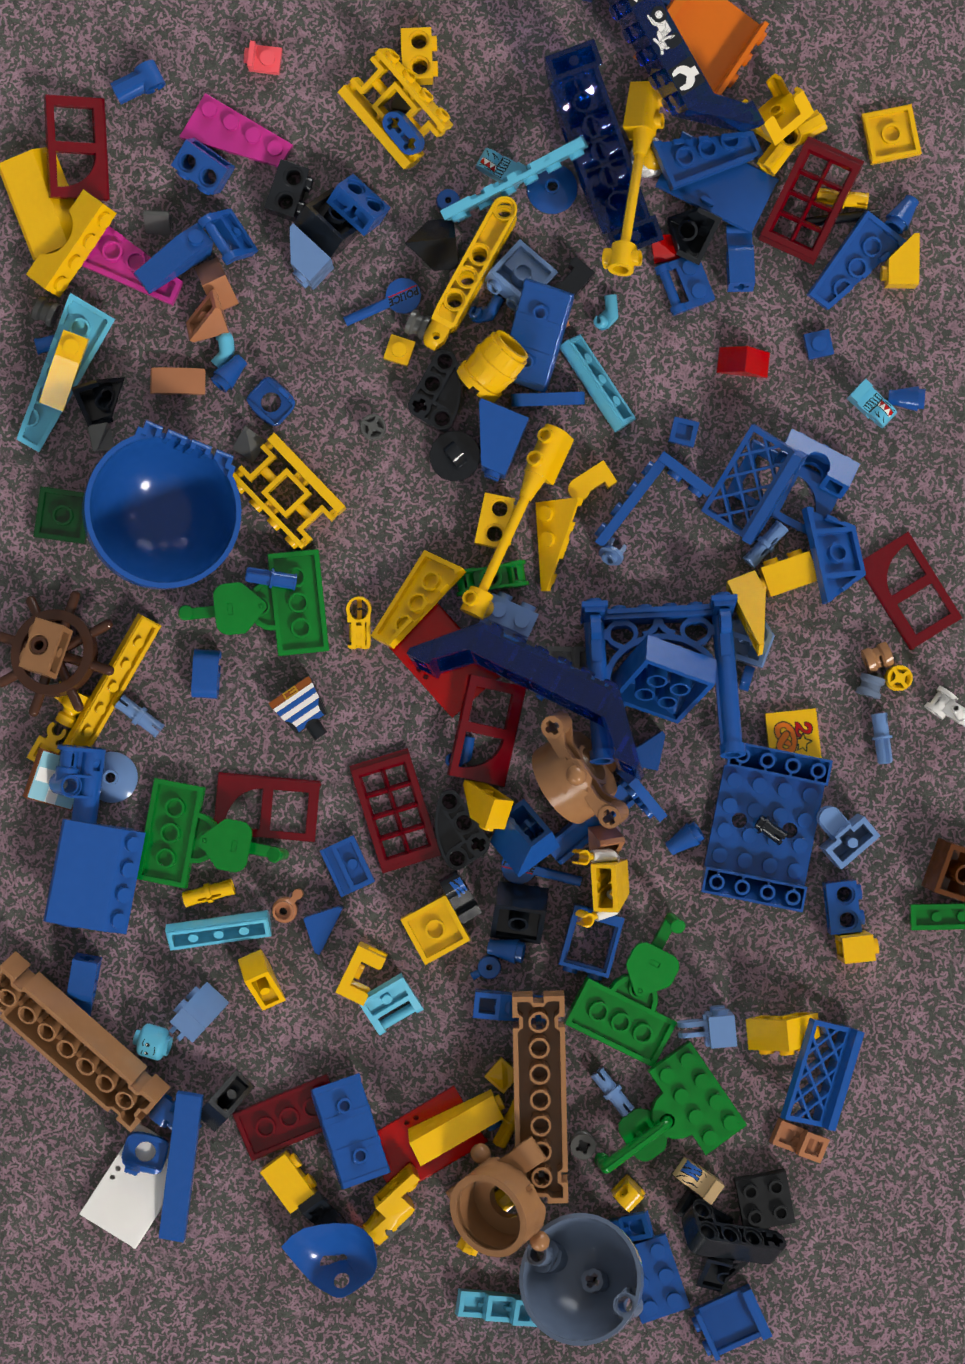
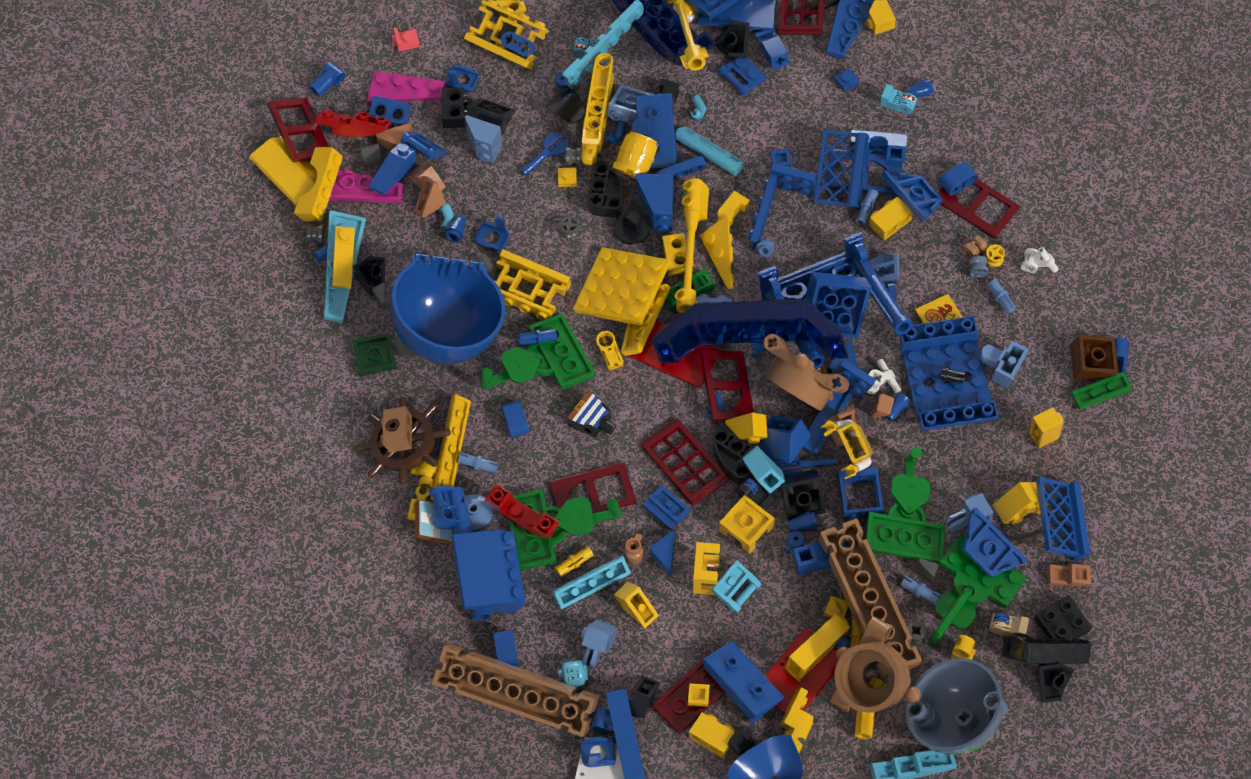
camera: 20 degrees left, 25 degrees down
(146, 172) = (358, 126): none -> red slope
(165, 815) = (521, 515): none -> red slope
(177, 381) = (423, 244): nougat slope -> none
(196, 206) = (392, 137): none -> nougat slope
(290, 1128) = (698, 695): none -> yellow plate
(316, 133) = (452, 78): none -> blue piece
(358, 204) = (504, 98): blue brick -> none
(406, 542) = (621, 286): none -> yellow plate
(482, 875) = (764, 469): none -> medium azure slope
(517, 325) = (641, 126): none -> blue tile
(553, 201) = (632, 56): blue dish -> none
(634, 1072) = (928, 569): none -> dark grey slope
(663, 1287) = (1021, 713): blue plate -> none
(664, 250) = (718, 59): red slope -> none
(667, 834) = (882, 406): none -> nougat slope
(680, 795) = (883, 377): none -> white piece
(713, 1084) = (989, 547): none -> blue wing
(730, 1321) = (1079, 715): blue panel -> none
(743, 361) = (801, 105): red slope -> none
(750, 606) = (876, 244): yellow slope -> none
(835, 908) = (1021, 411): blue brick -> none
(899, 552) = (958, 178): none -> blue beam

